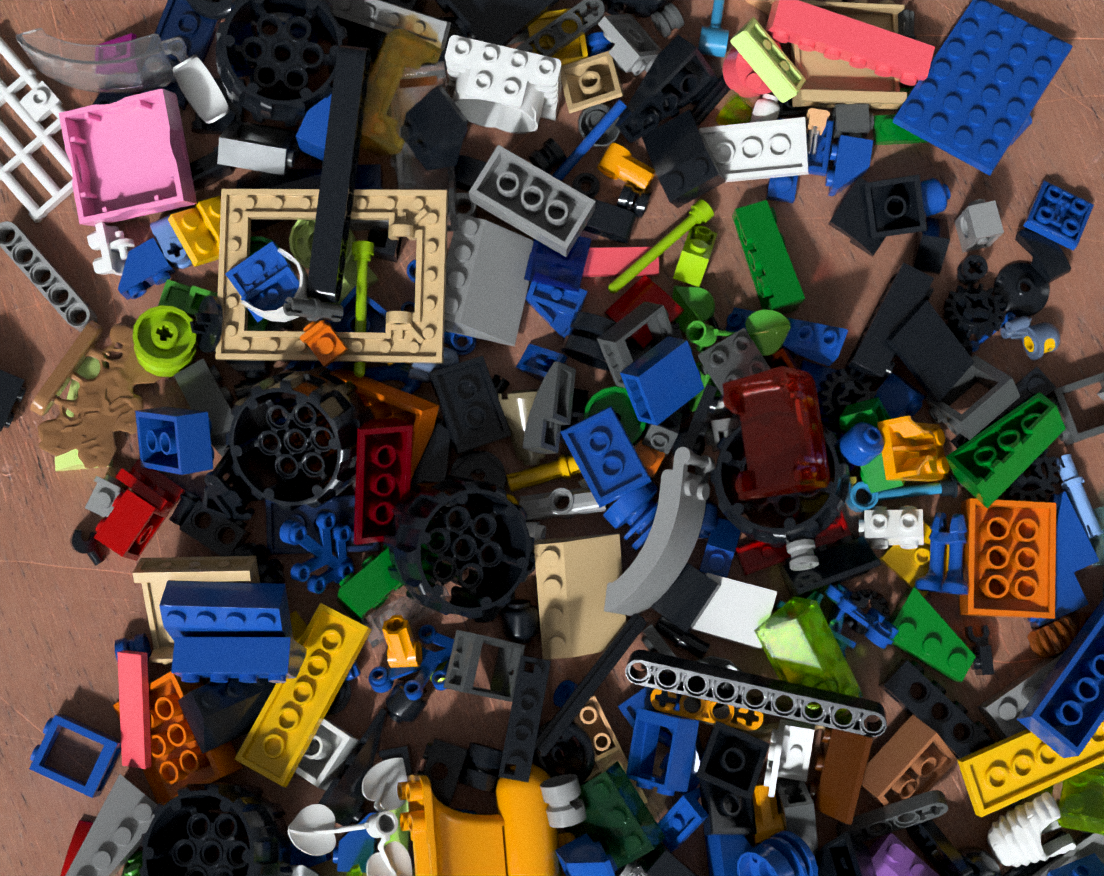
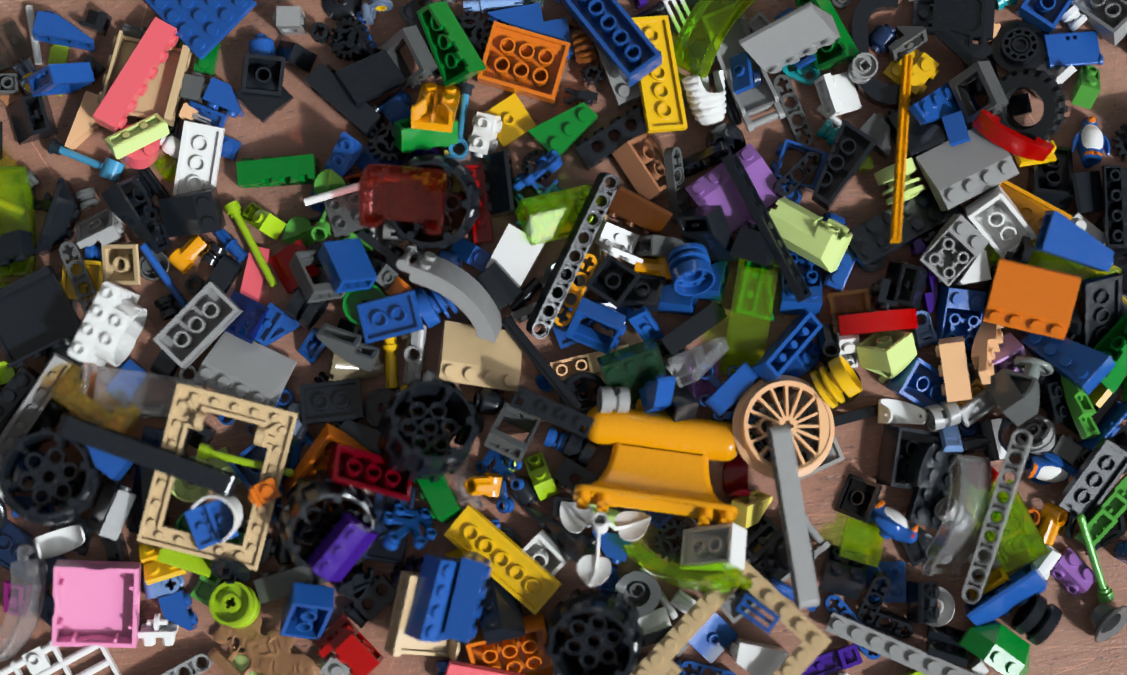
camera: 80 degrees left, 5 degrees up
(208, 260) = (185, 561): none -> lime piece
(266, 465) = (341, 548): none -> dark purple slope
(313, 309) = (240, 493): dark grey pin -> none
(432, 720) = (540, 476): none -> lime slope
(435, 130) = (131, 381): black slope -> none
(489, 722) = (552, 436): none -> blue wheel
(651, 221) = (231, 245): none -> blue axle
(754, 335) = (331, 194): none -> bar
(802, 554) = (488, 200): light grey wheel -> none
(861, 444) = (423, 142): blue head -> none
(934, 579) = (499, 104): blue piece -> none
(1007, 657) = (594, 69): none -> black gear

